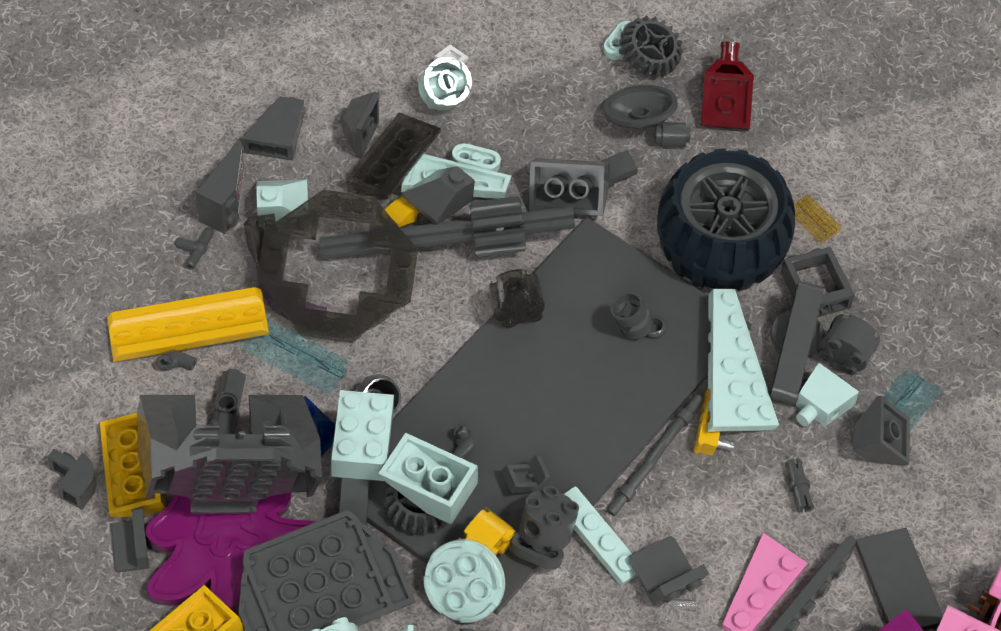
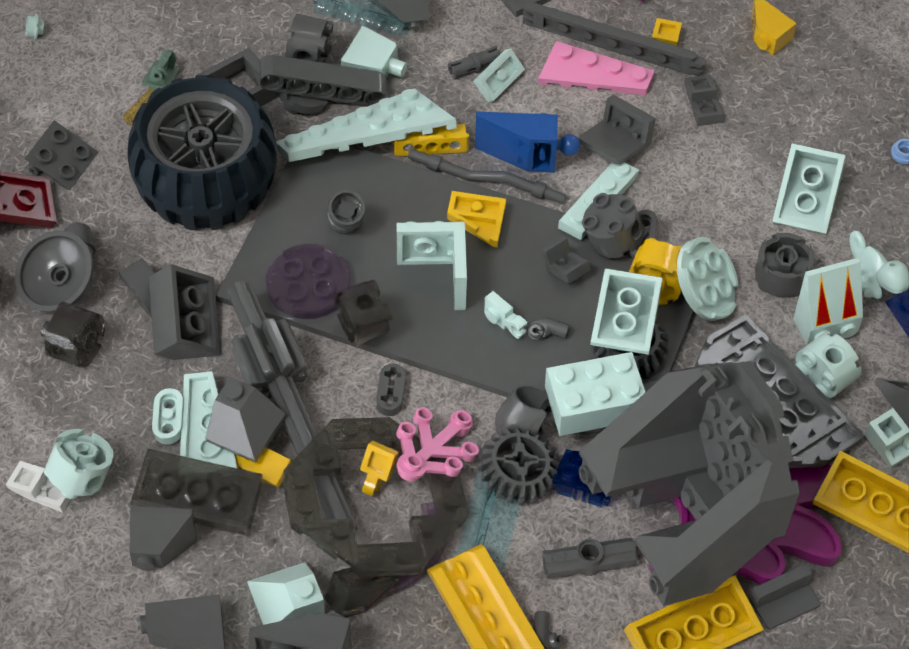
camera: 105 degrees left, 0 degrees up
(312, 373) = (509, 472): none -> dark grey gear
(366, 277) = (379, 465): none -> yellow plate
(369, 319) = (414, 465): none -> bright pink plant
(447, 318) = (396, 389): none -> dark grey beam
(487, 410) = (501, 313): none -> light aqua plate
(549, 382) = (444, 246): none -> light aqua bracket
(571, 105) = (73, 335): none -> clear smoke brick
(577, 282) = (305, 280): none -> clear purple tile
(604, 426) = (480, 213): none -> yellow wing
(674, 487) = (523, 139): none -> blue slope
(773, 139) = (60, 155): none -> dark grey hinge
(774, 498) = (499, 75): none -> light aqua plate
(846, 229) = (162, 71): none -> sand green hinge
(932, 150) = (34, 26): none -> light aqua plate

